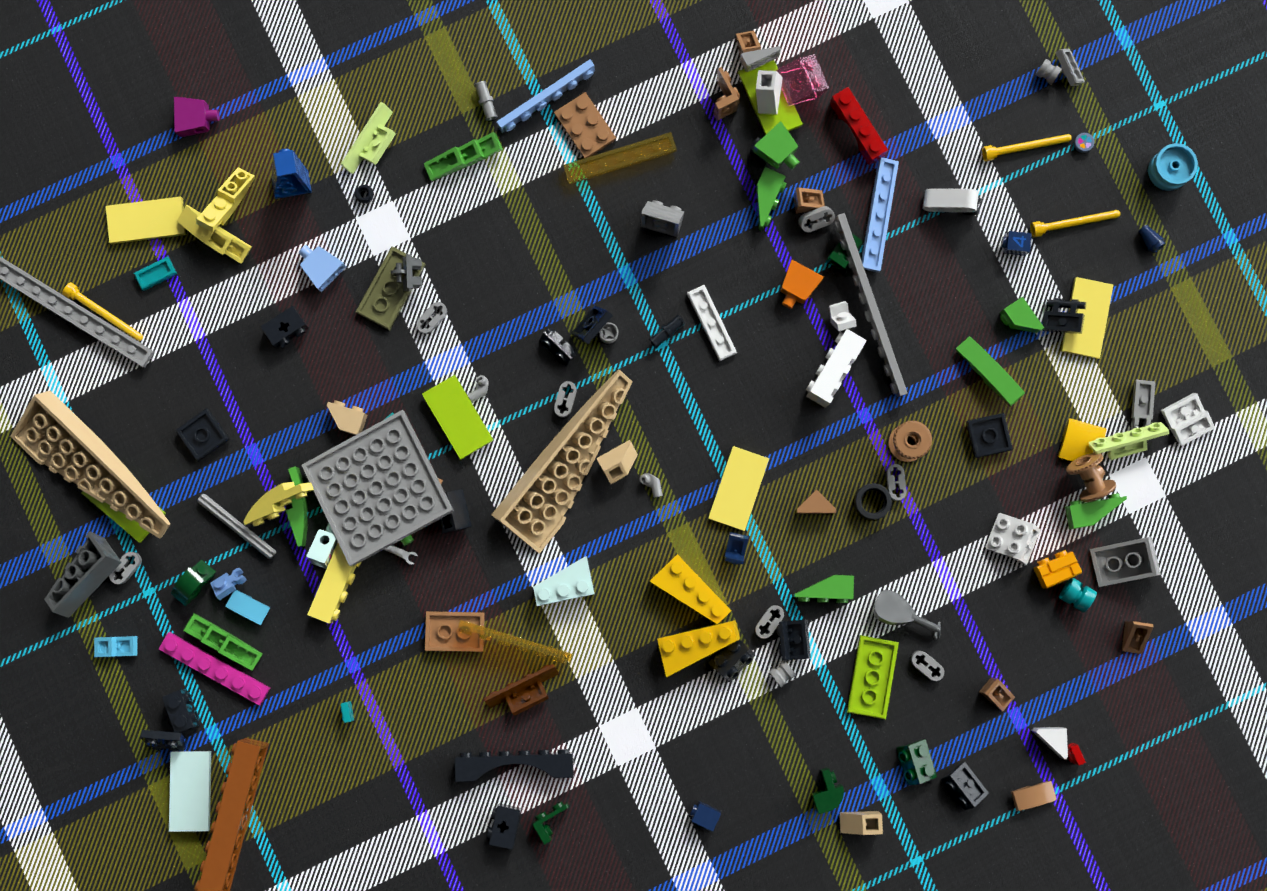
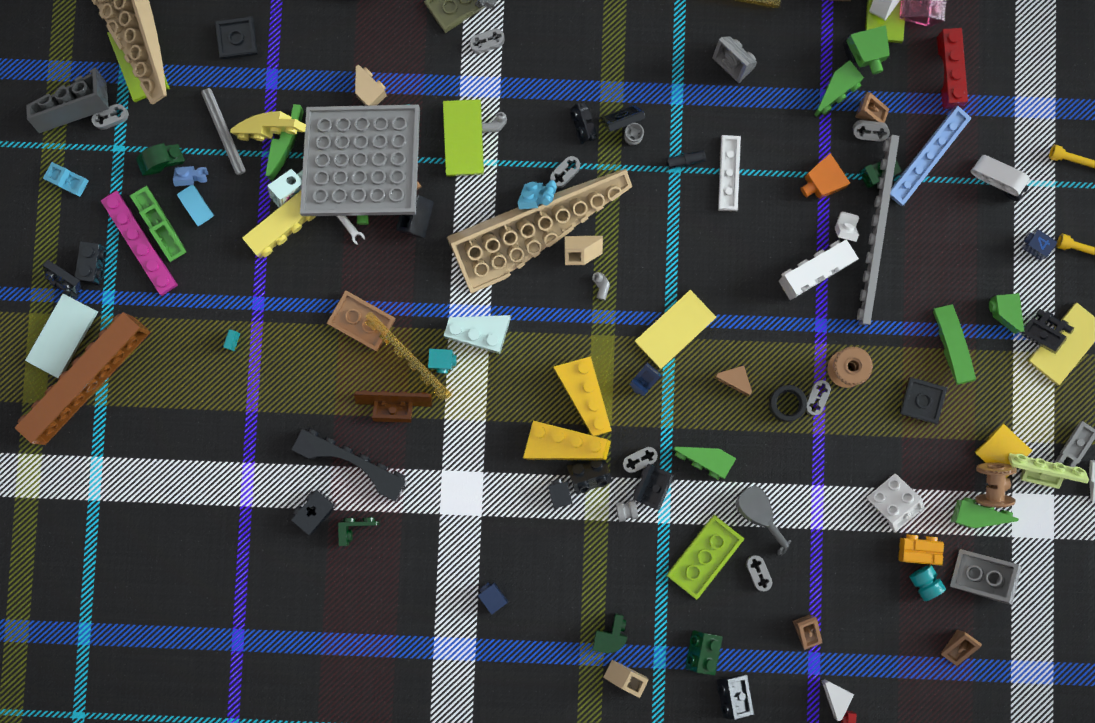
camera: 30 degrees right, 0 degrees up
(546, 628) = (441, 360): none -> teal brick
(551, 433) = (536, 194): none -> medium azure plate
(715, 690) = (560, 493): none -> black brick

